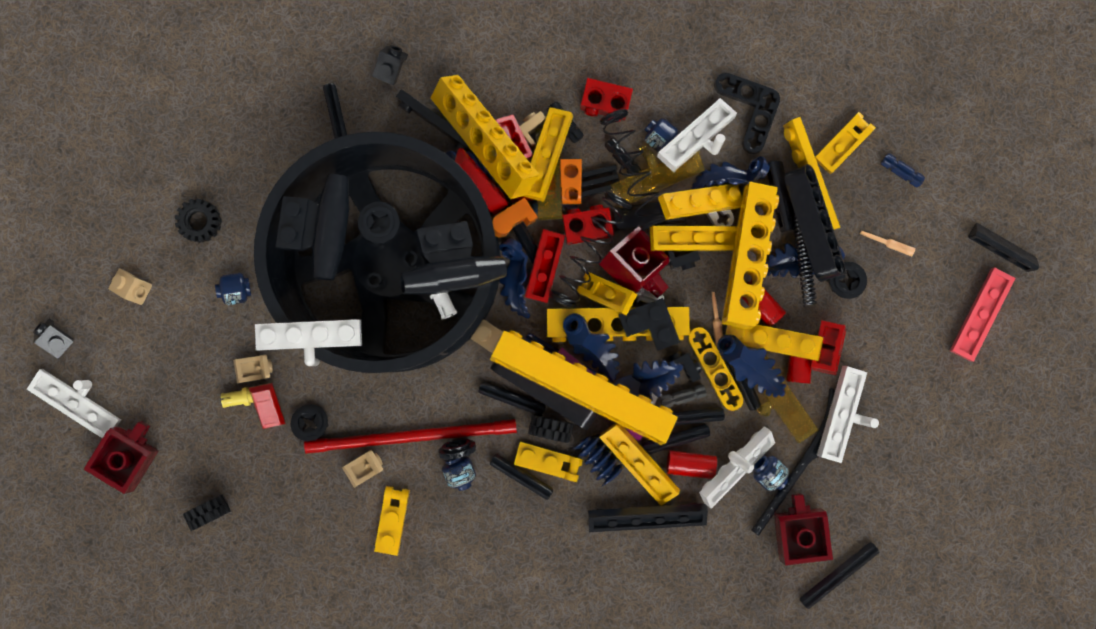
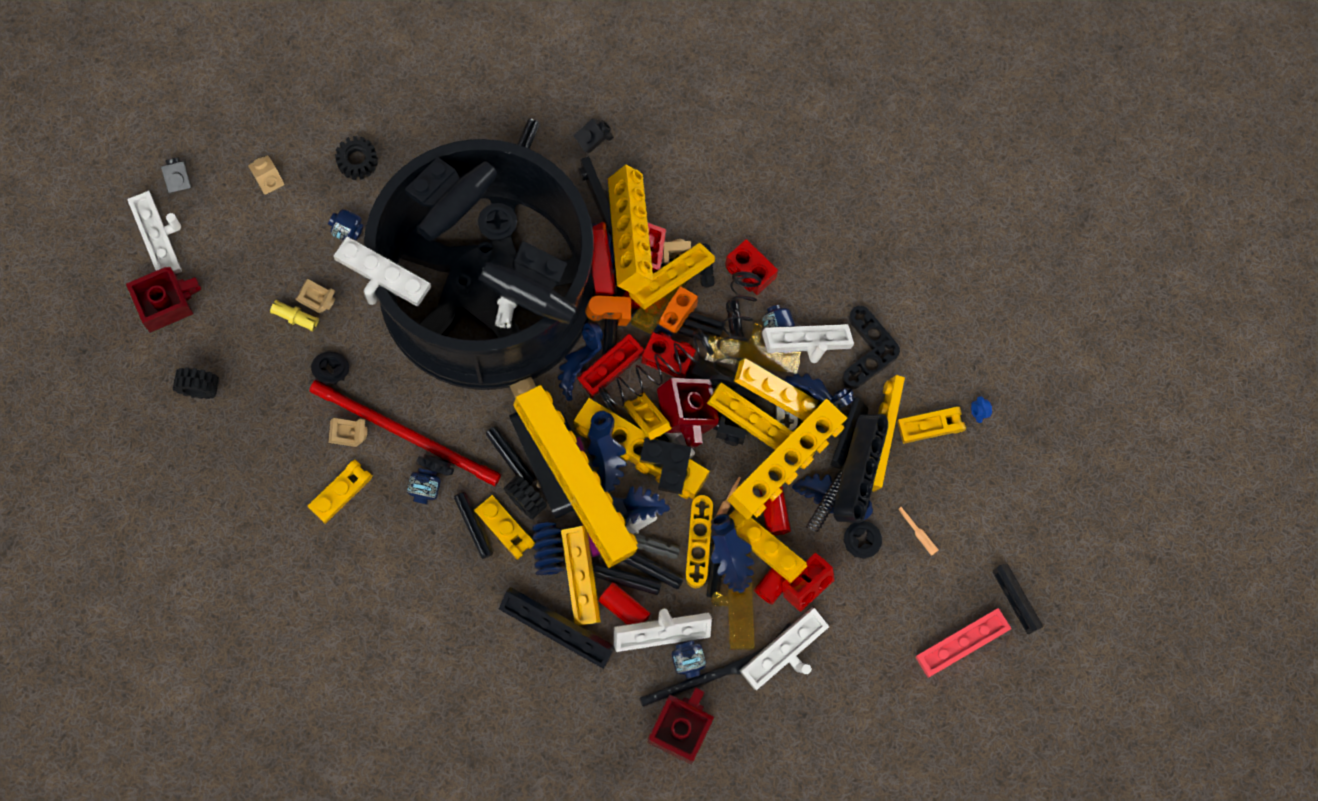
camera: 30 degrees right, 15 degrees down
(267, 405) = (306, 332): tile -> none
(690, 367) = (678, 525): black bracket -> none
(839, 575) = (691, 790): black axle -> none
(878, 102) = (981, 409): none -> blue plate
(902, 170) = (968, 479): dark blue axle -> none

